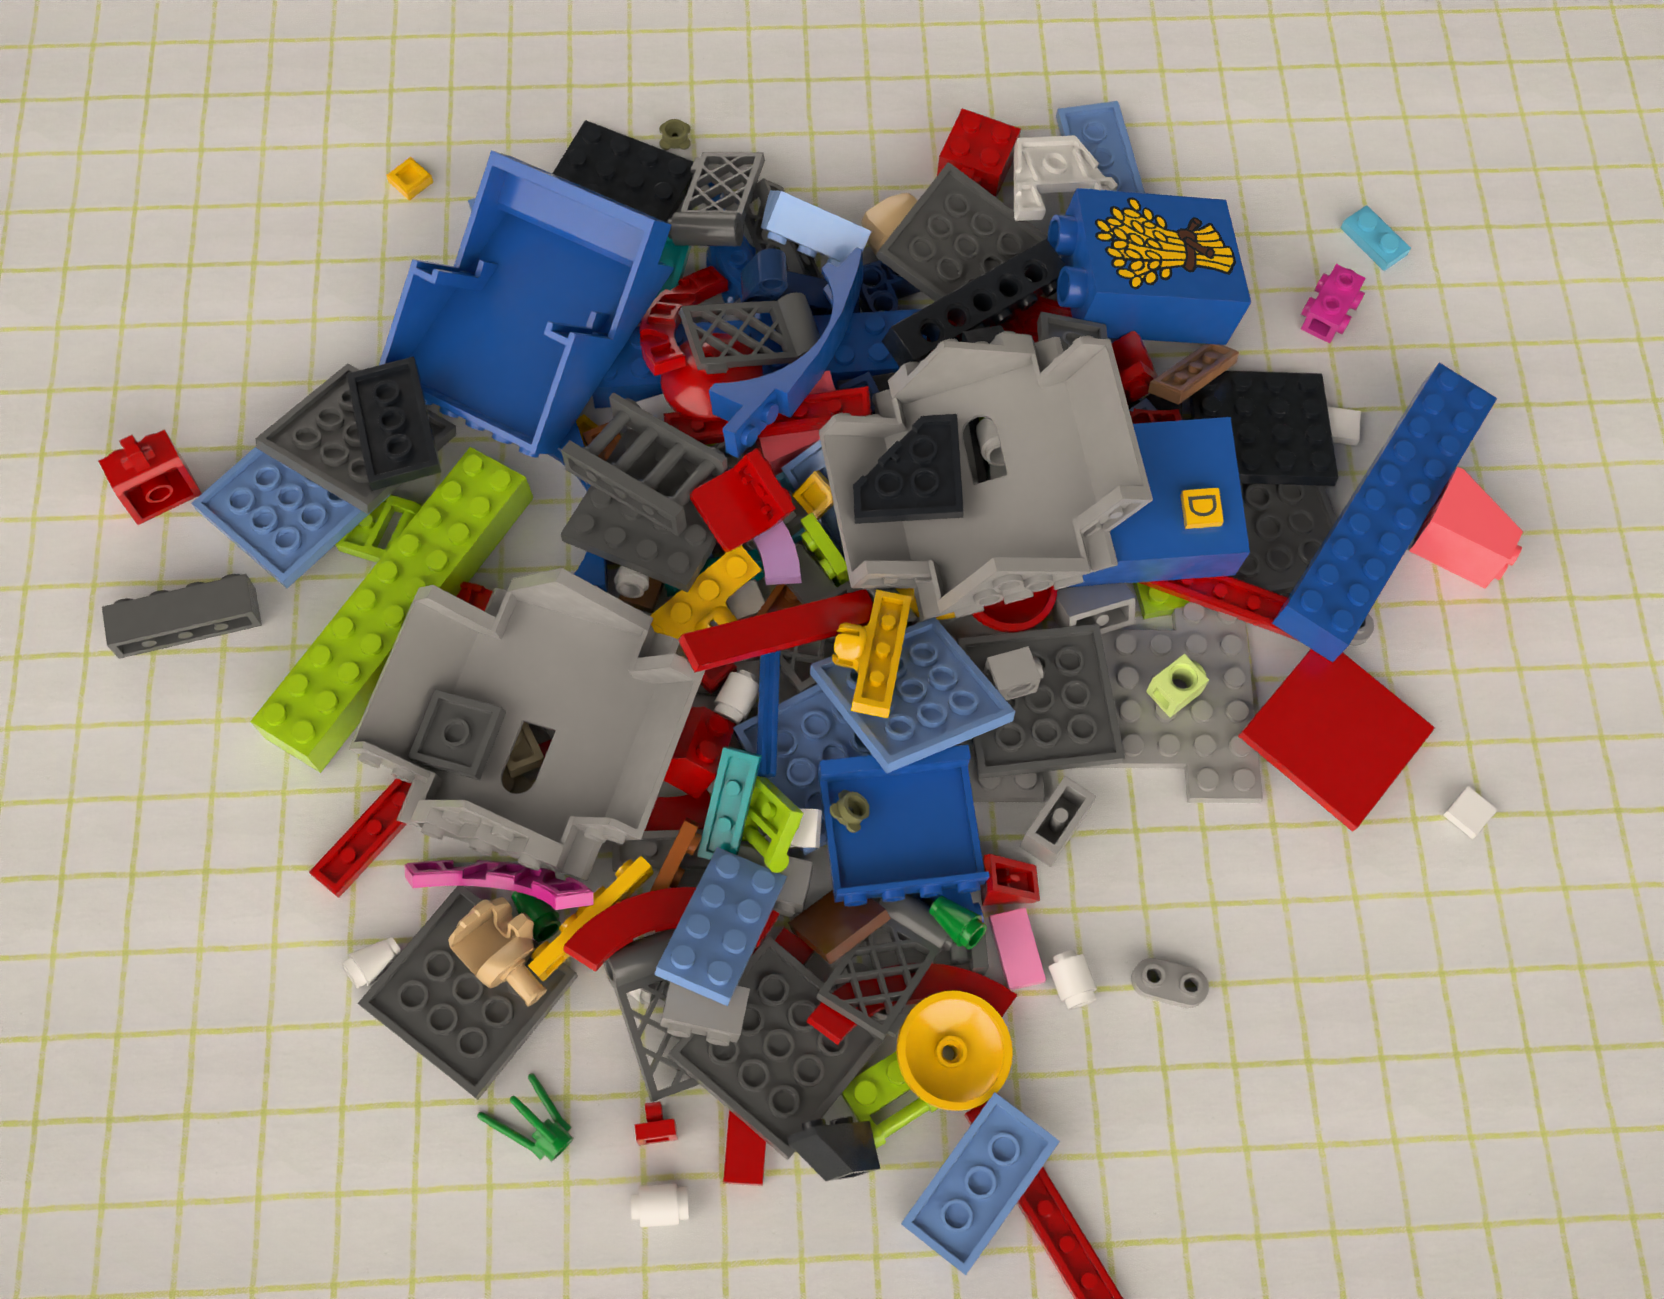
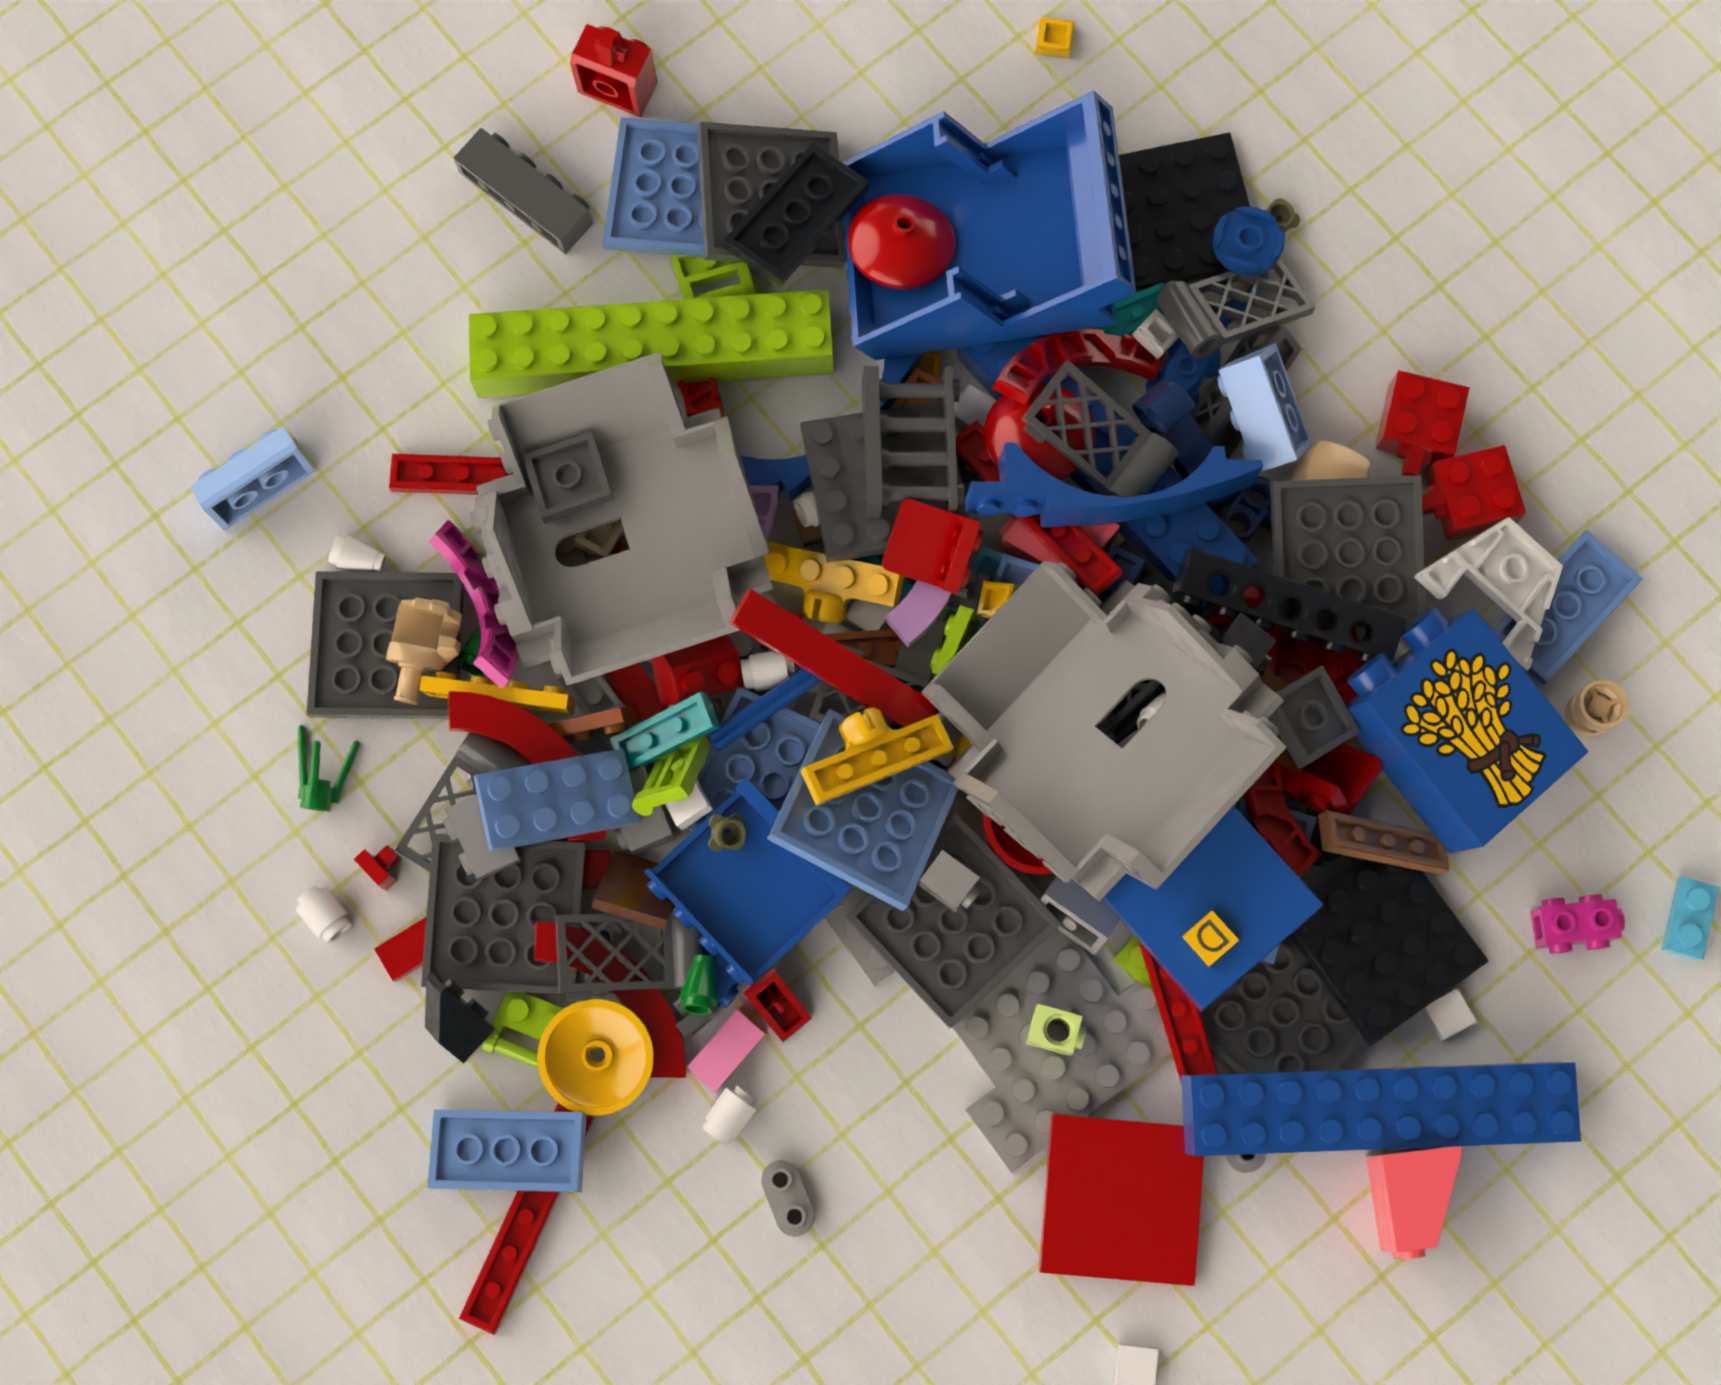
camera: 60 degrees right, 10 degrees up
(229, 999) = (251, 478): none -> light blue slope
(479, 370) = (897, 255): none -> red dish
(678, 159) = (1248, 241): none -> blue tile
(697, 260) = (1156, 334): none -> white tile
(899, 148) = (1421, 420): none -> red hinge
(914, 476) = (1060, 672): black plate -> none
(1057, 821) = (855, 1010): light grey brick -> none
(1192, 178) = (1596, 708): none -> tan wheel

